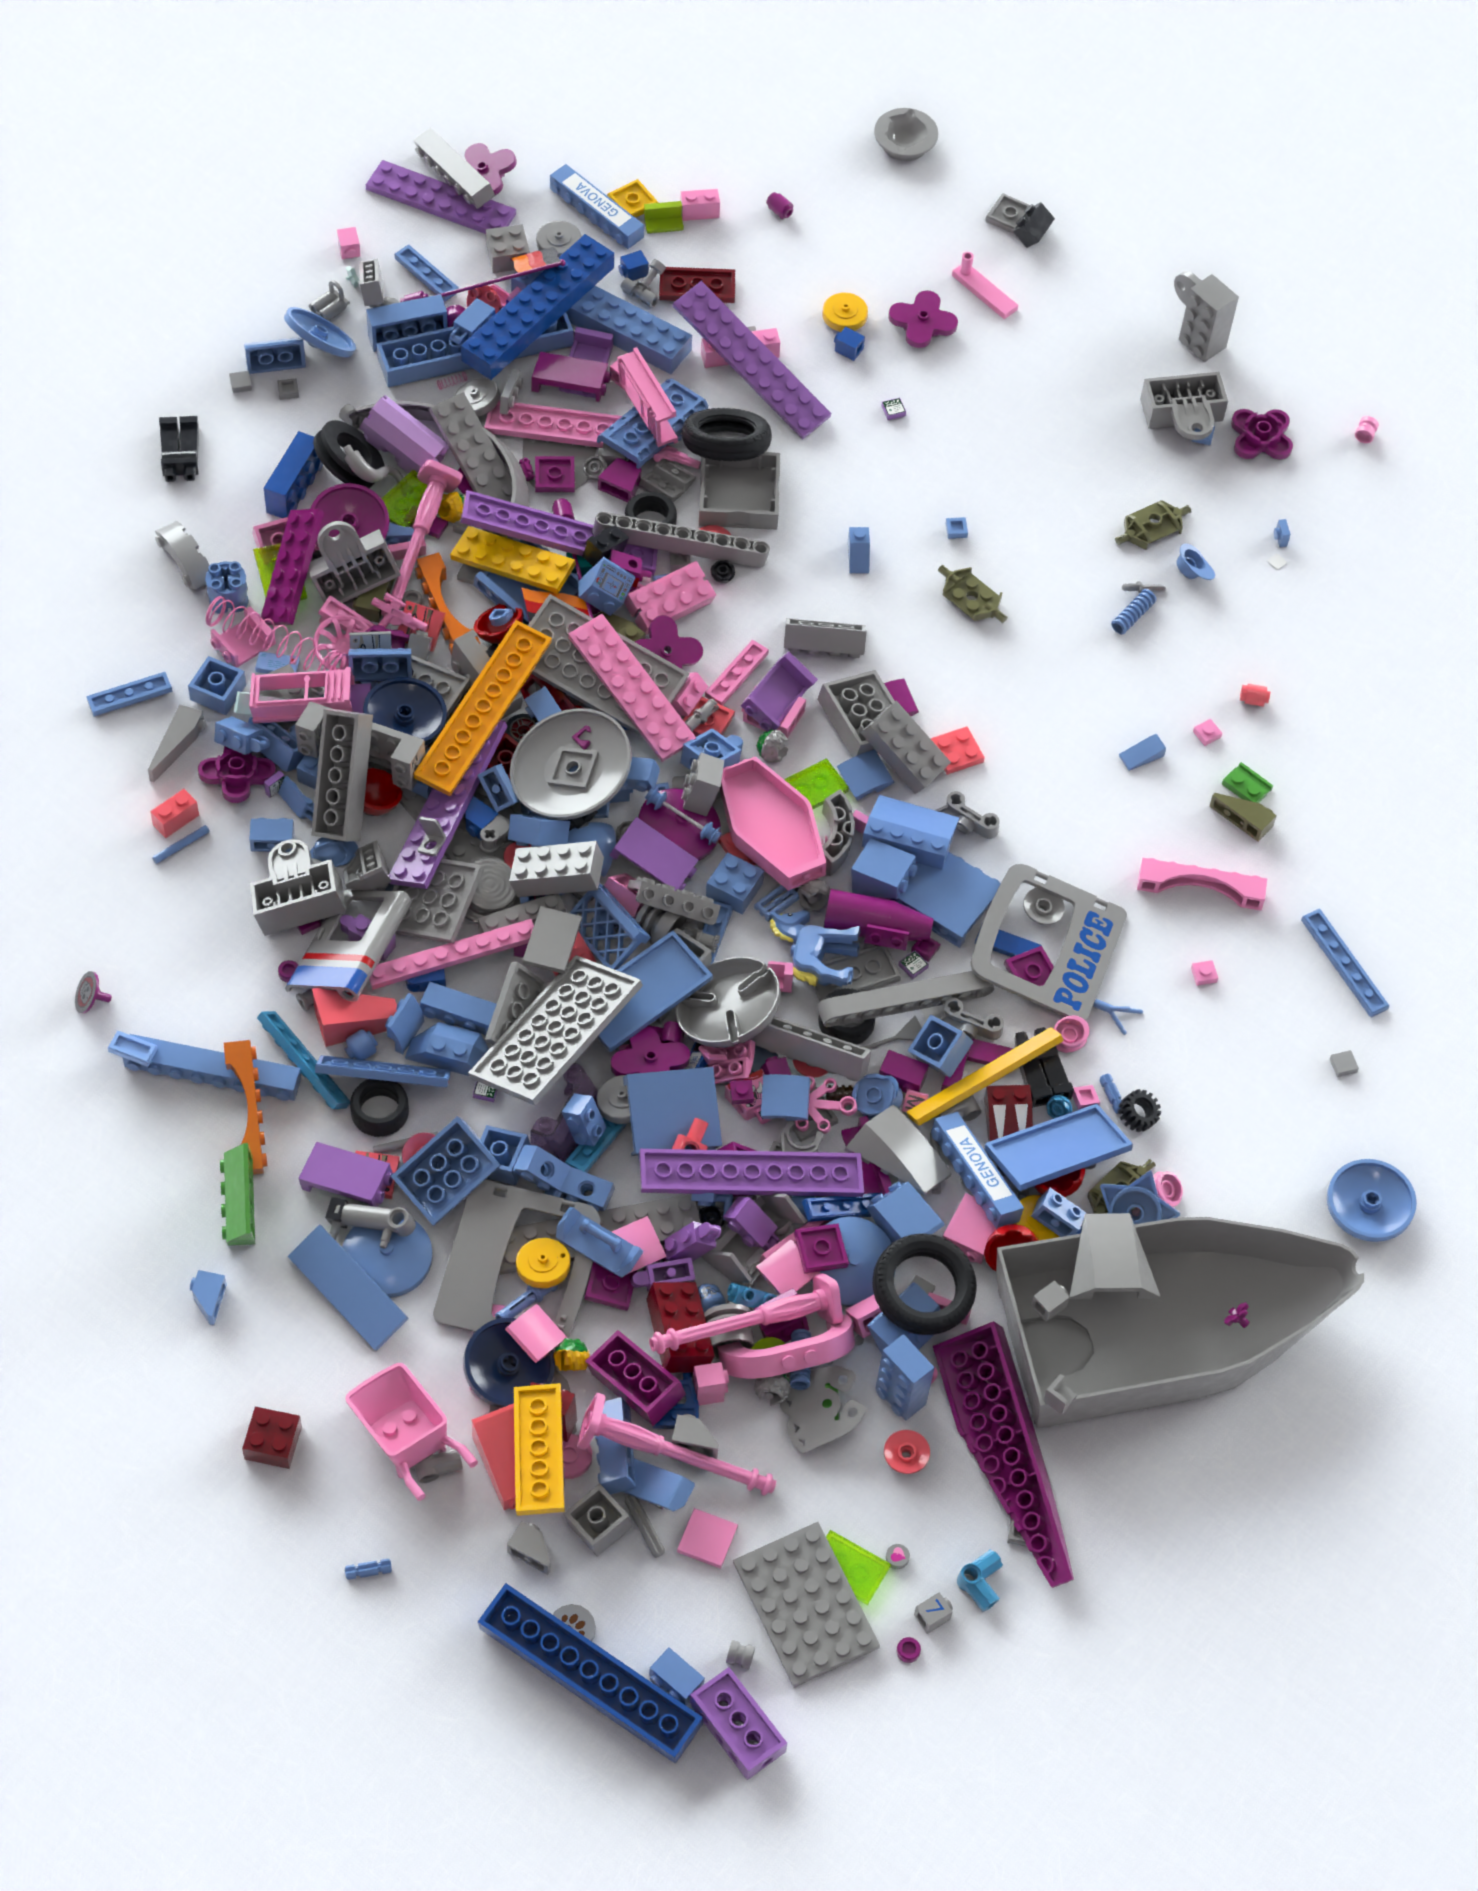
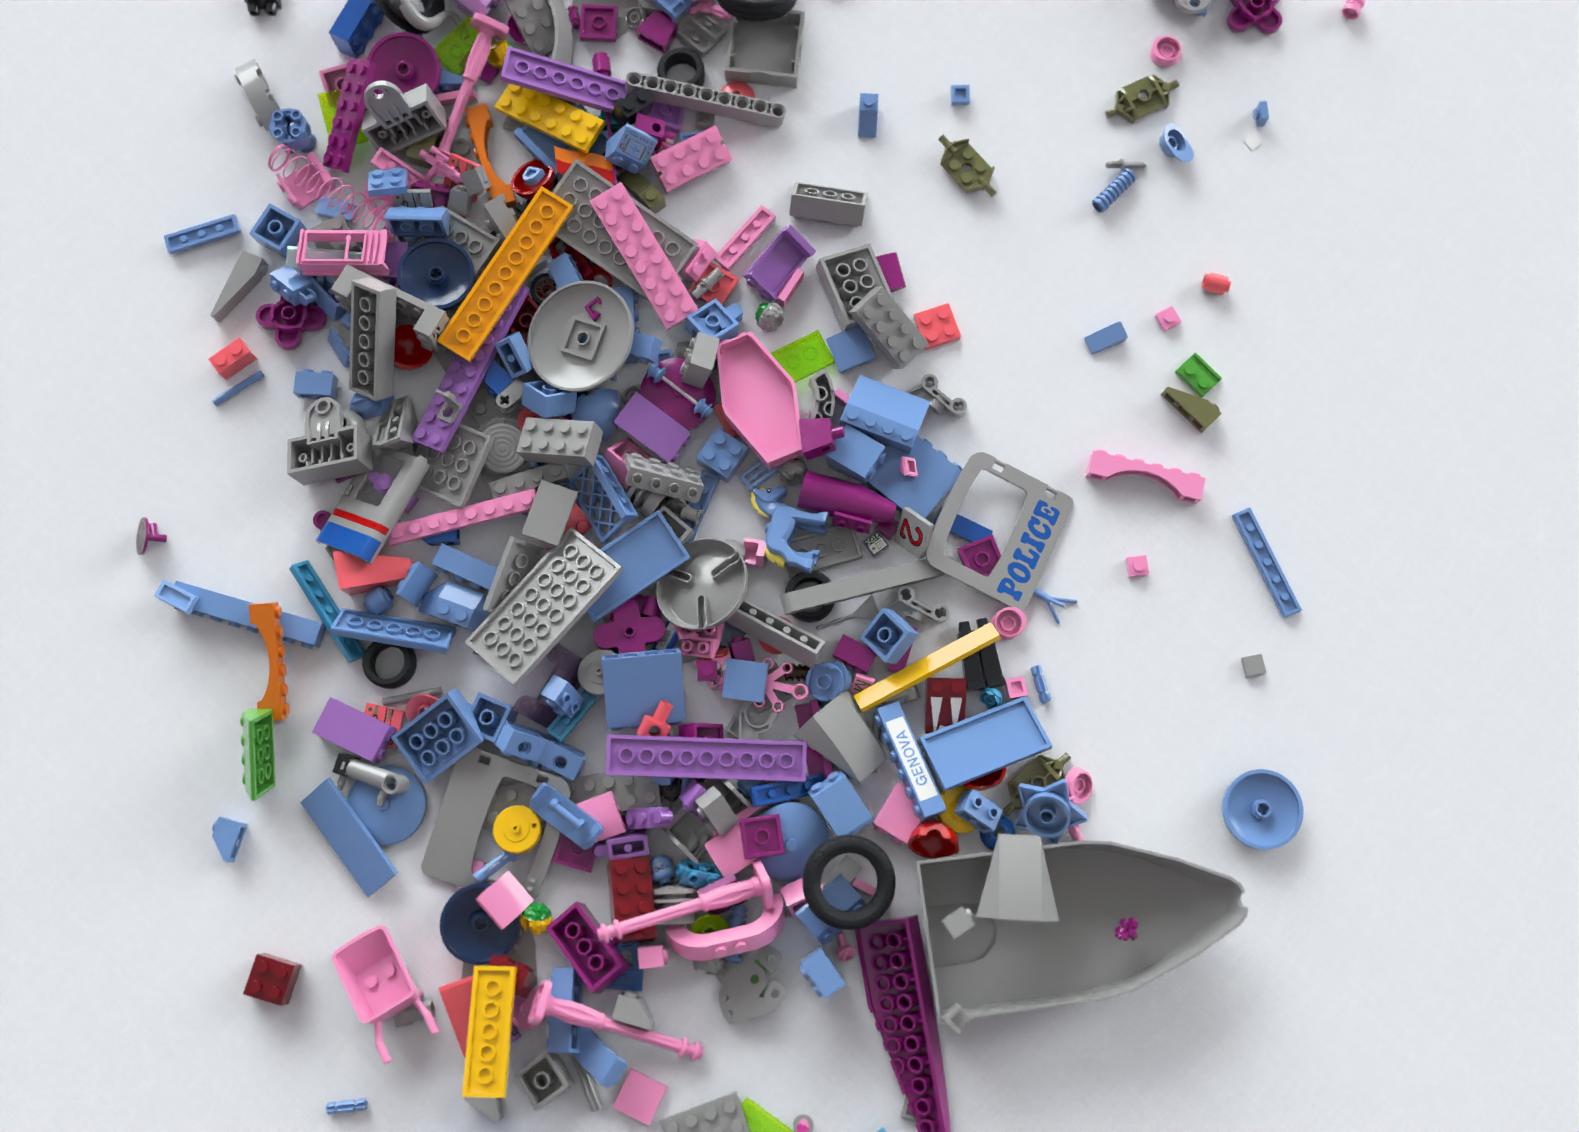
camera: 10 degrees right, 20 degrees up
(273, 784) = (322, 332): tile -> none
(343, 626) = (387, 182): none -> medium blue plate
(437, 624) = (476, 181): none -> light grey brick
(664, 637) = (681, 200): magenta plant -> none
(720, 567) = (740, 126): black plate -> none
(768, 1225) = (716, 811): none -> light grey brick
(843, 849) = (818, 436): none -> magenta torso
(909, 1442) = (826, 1038): coral dish -> none
(942, 880) = (908, 467): none -> bright pink slope
(955, 945) = (913, 533): none -> light grey tile
(985, 1052) = (934, 637): magenta tile -> none
(1052, 906) = (1007, 492): light grey dish -> none
(1132, 1117) = (1052, 705): black tyre -> none
(1173, 478) = (1166, 51): none -> bright pink piece

